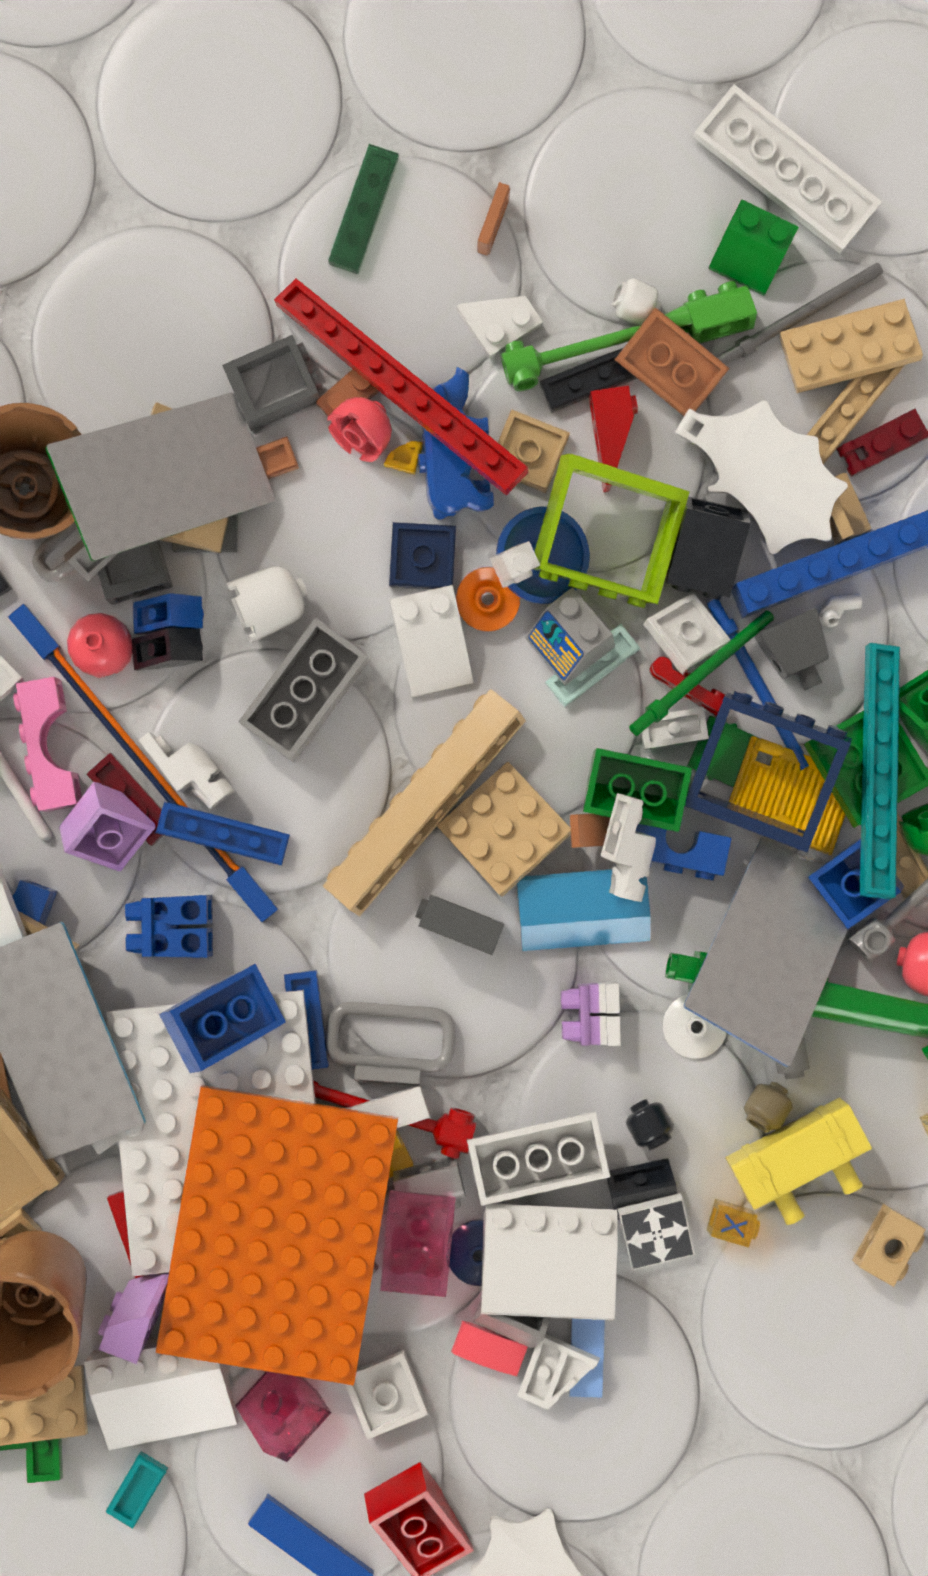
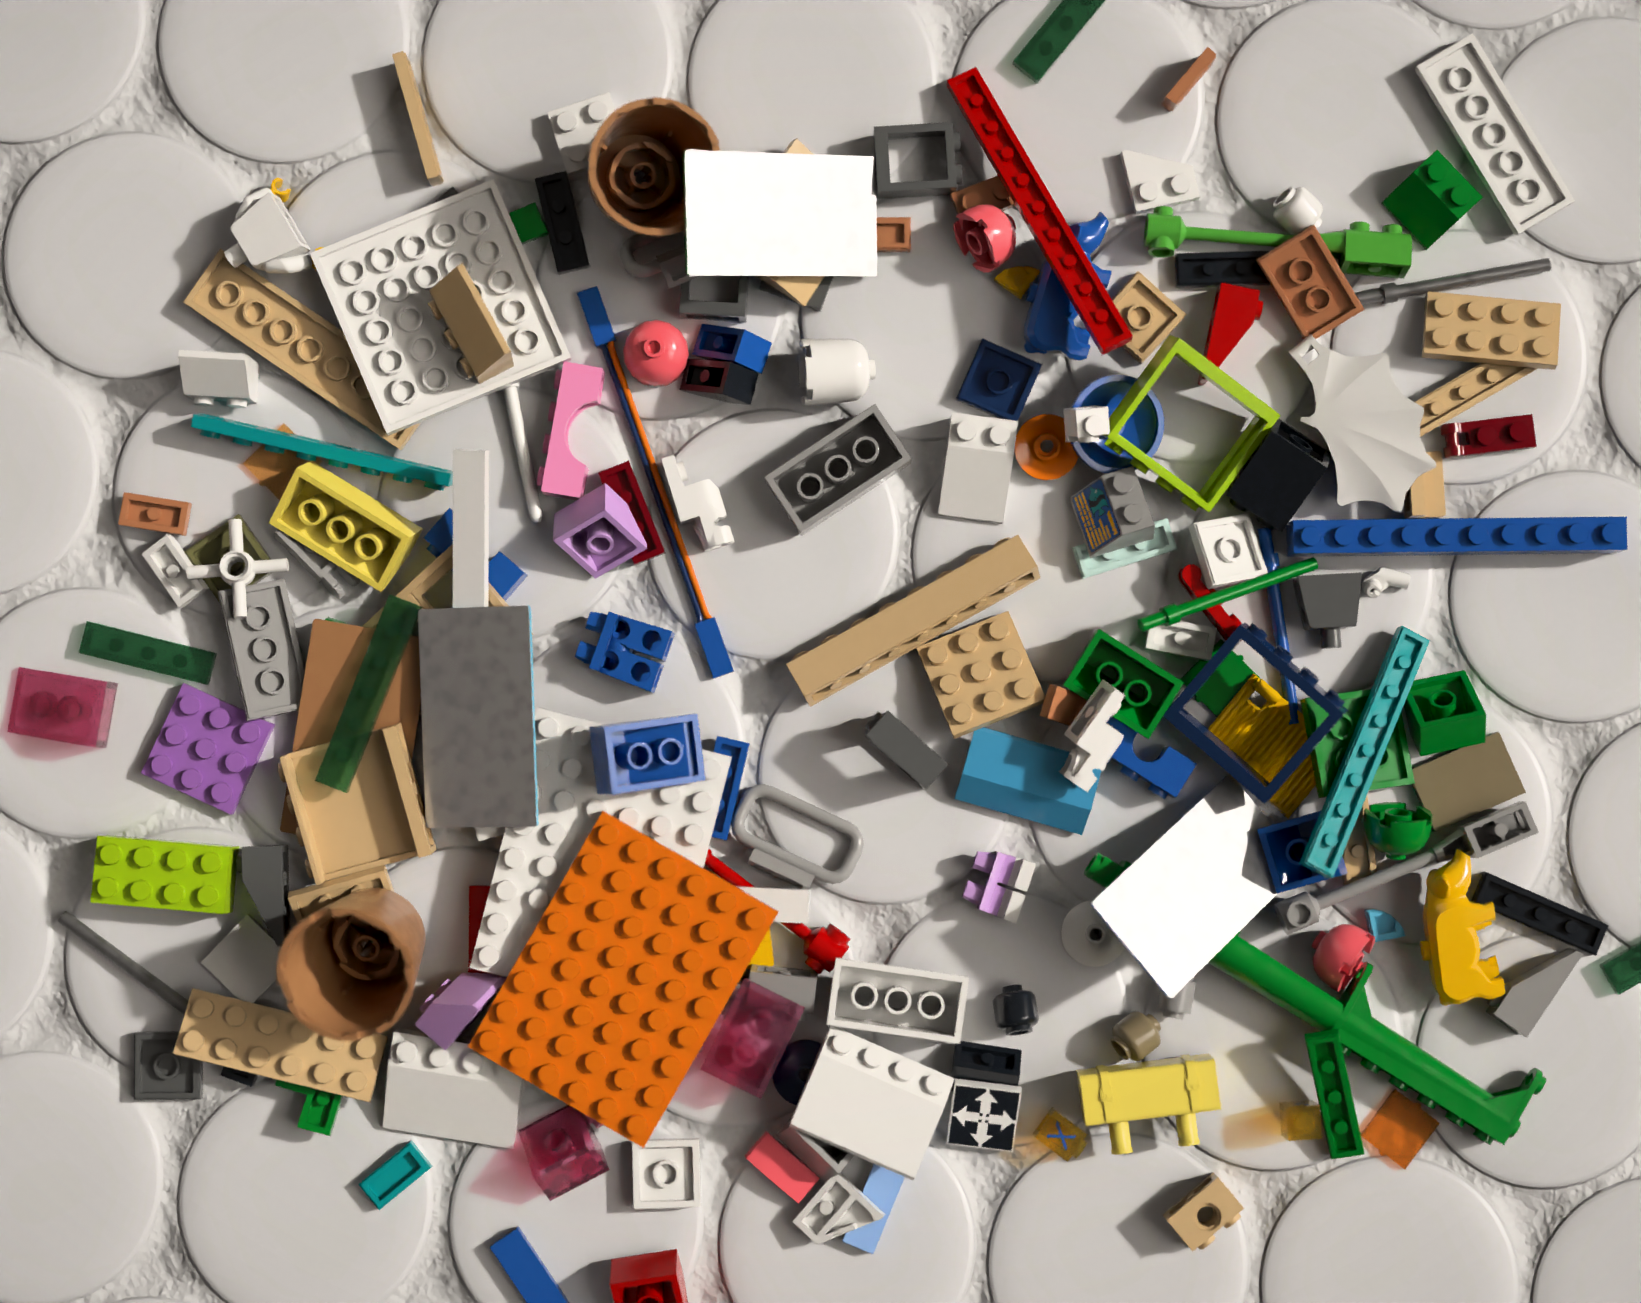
camera: 25 degrees right, 0 degrees up
(222, 833) = (708, 578): blue tile -> none

